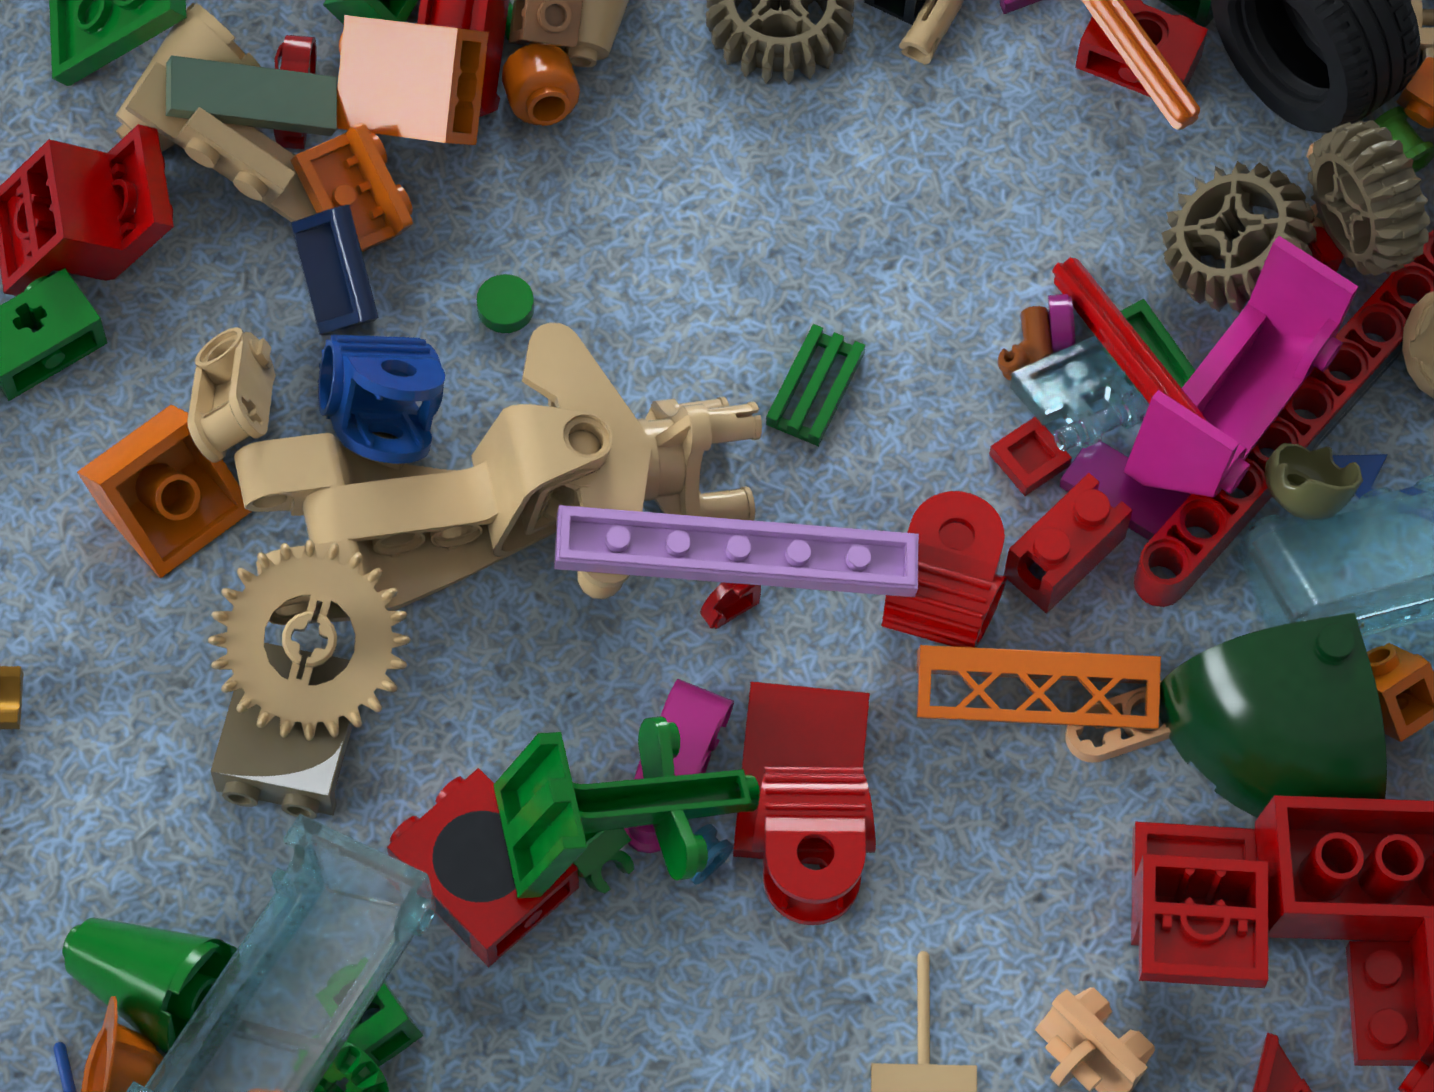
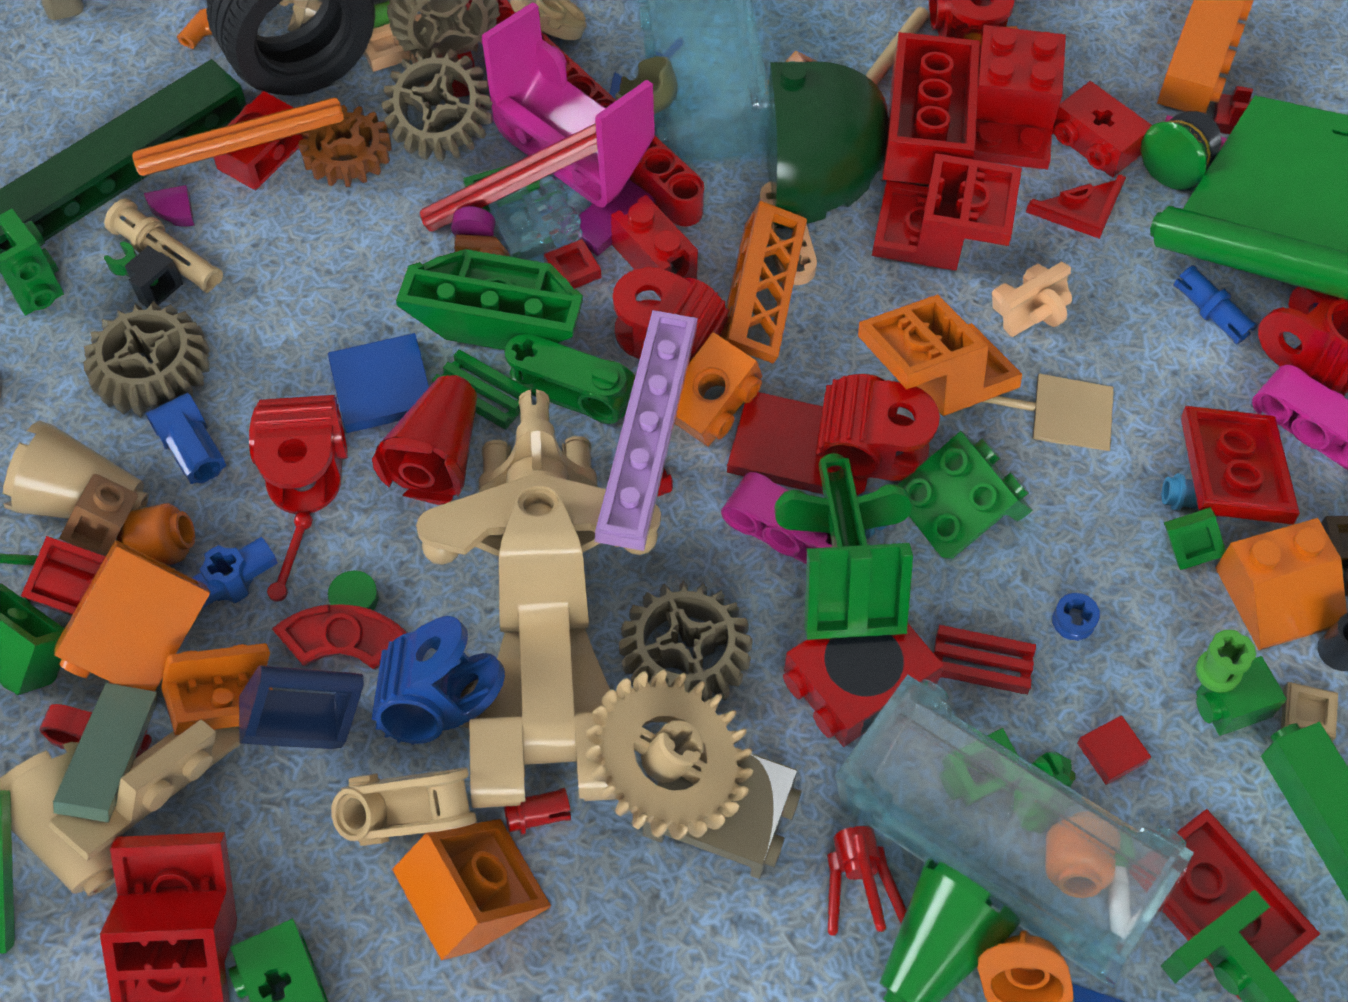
camera: 80 degrees left, 5 degrees down
(245, 885) = (861, 859): none -> red plant
(257, 531) = (538, 811): none -> red pin
(445, 690) = (718, 628): none -> dark tan gear
(452, 300) = (337, 631): none -> red tile
(501, 227) = (278, 591): none -> red hinge
(515, 181) = (242, 566): none -> blue axle
(529, 965) = (990, 643): none -> red tile
(685, 189) = (296, 445): none -> red piece
(689, 73) = (185, 434): none -> blue piece
(717, 336) = (431, 443): none -> red cone
(758, 973) = (962, 494): none -> green bracket
(803, 271) = (378, 381): none -> blue tile
(841, 461) = (571, 377): none -> green piece
(868, 666) = (716, 365): none -> orange brick
(936, 357) = (490, 298): none -> green wedge
(939, 906) = (940, 354): none -> orange bracket
(1156, 171) = (347, 148): none -> dark orange gear

